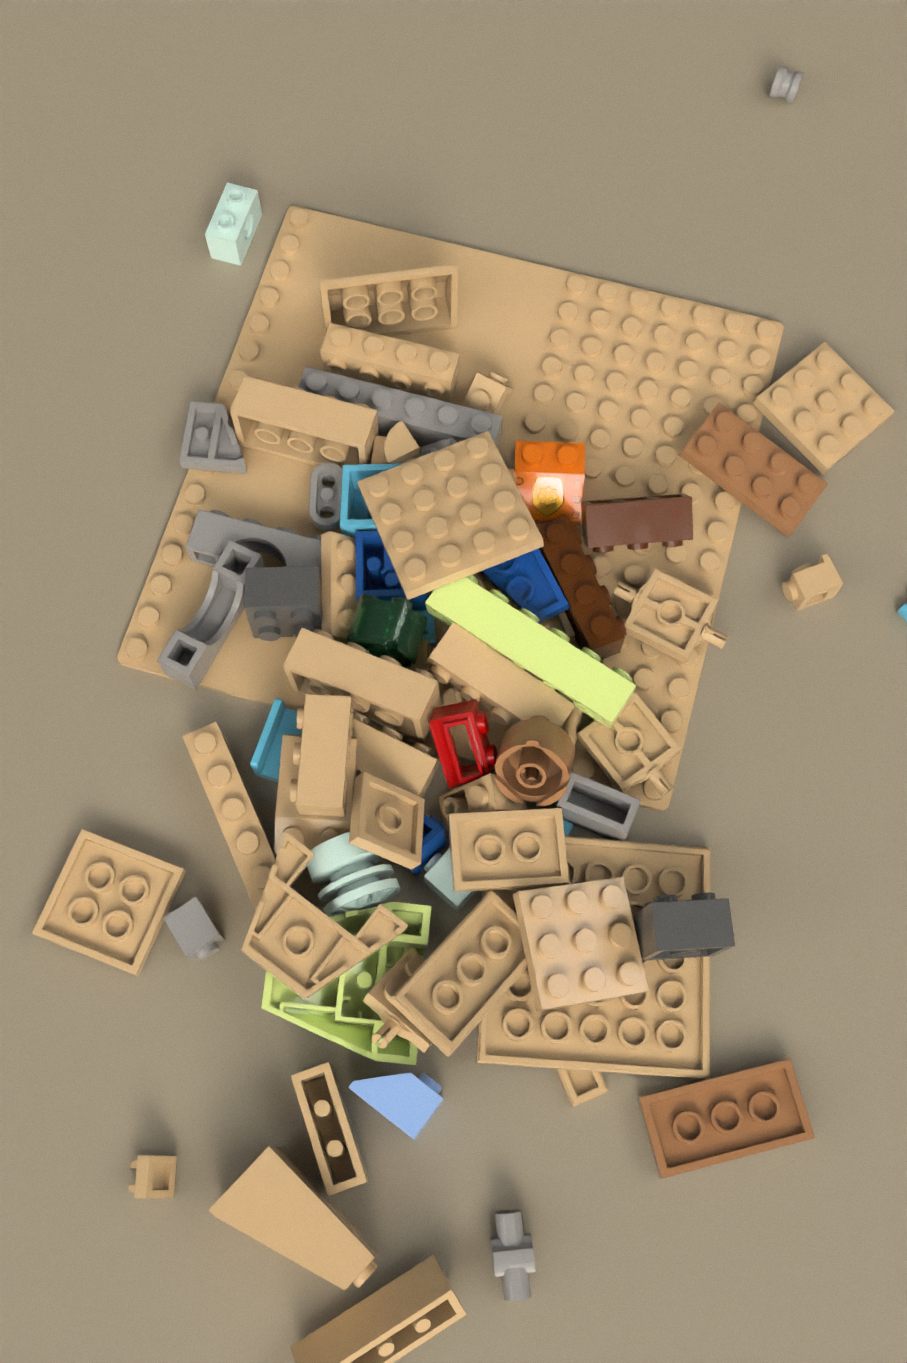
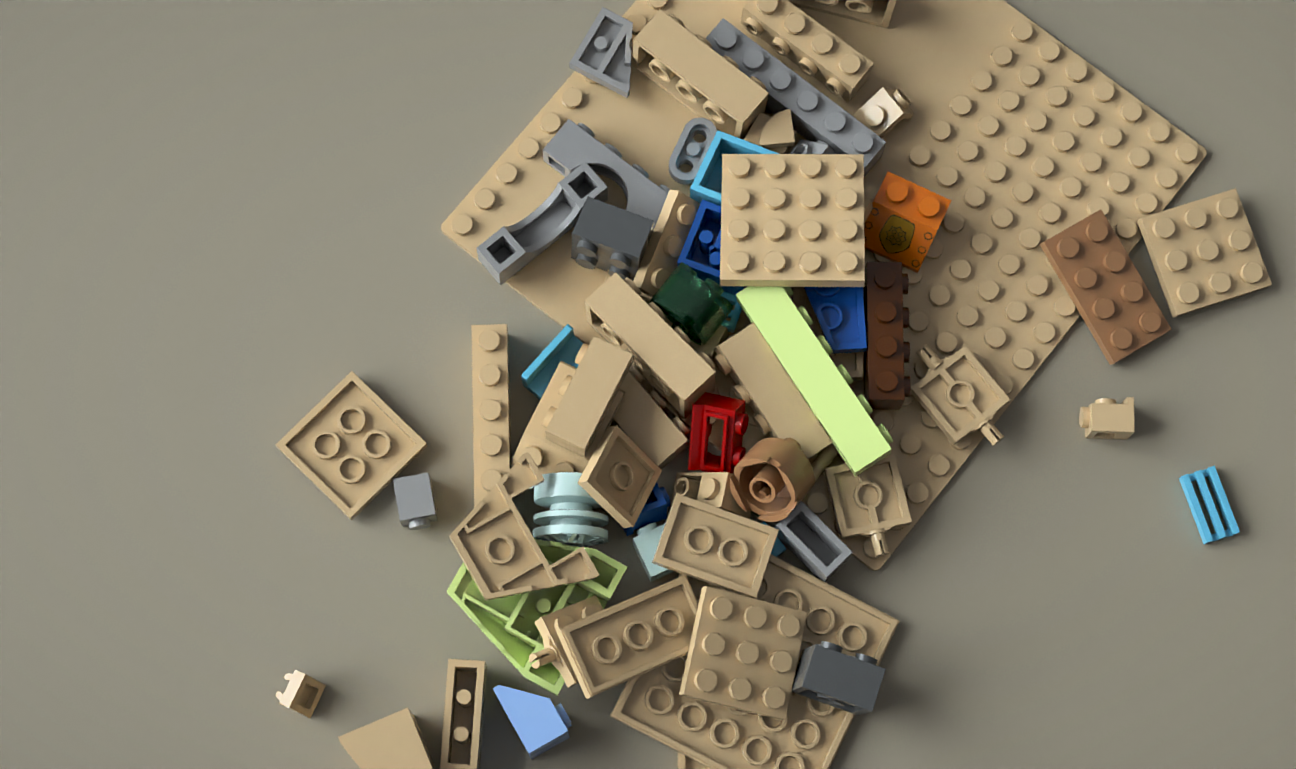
camera: 20 degrees right, 5 degrees up
(637, 522) = (968, 294): reddish brown brick -> none

